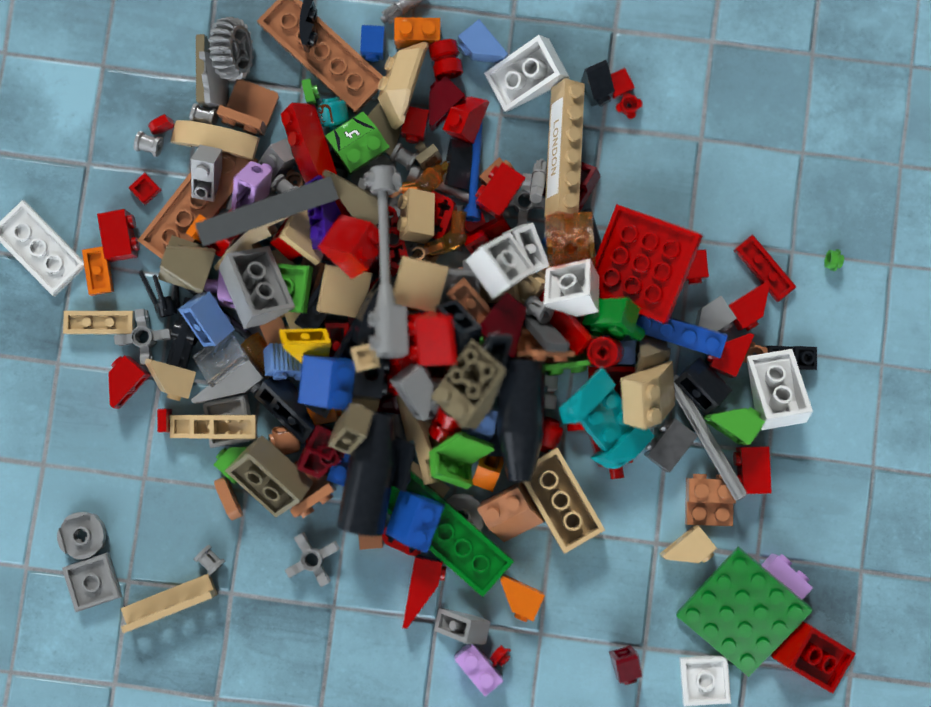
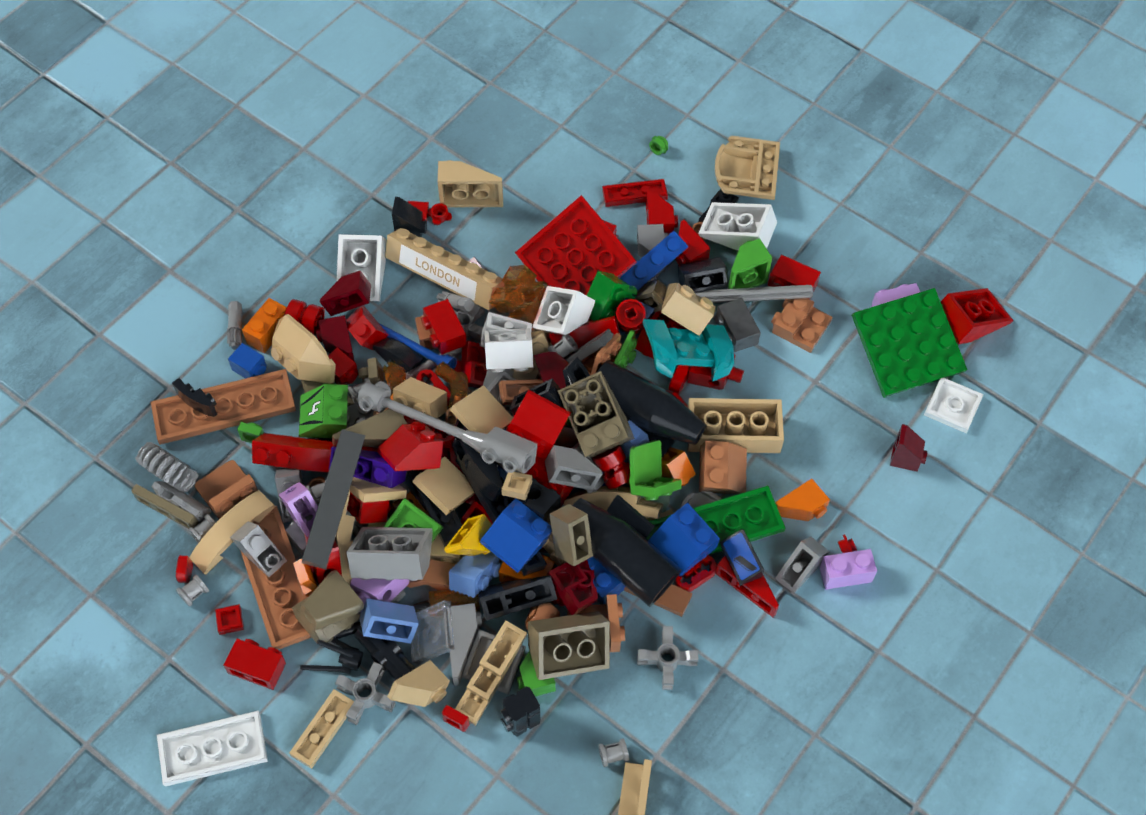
camera: 60 degrees left, 25 degrees down
(97, 271) = (273, 702): orange plate -> none
(125, 380) = (392, 733): red slope -> none
(193, 471) = (520, 712): none -> black brick
(228, 498) = (565, 701): nougat beam -> none
(333, 113) = (283, 422): teal head -> none
(428, 576) = (742, 557): none -> slope
(480, 44) = (312, 285): medium blue slope -> none
(488, 82) = (347, 293): none -> dark red slope
(666, 108) = (468, 186): none -> tan slope
(690, 547) = (832, 353): tan slope -> none
(856, 360) = (748, 167): none -> tan slope

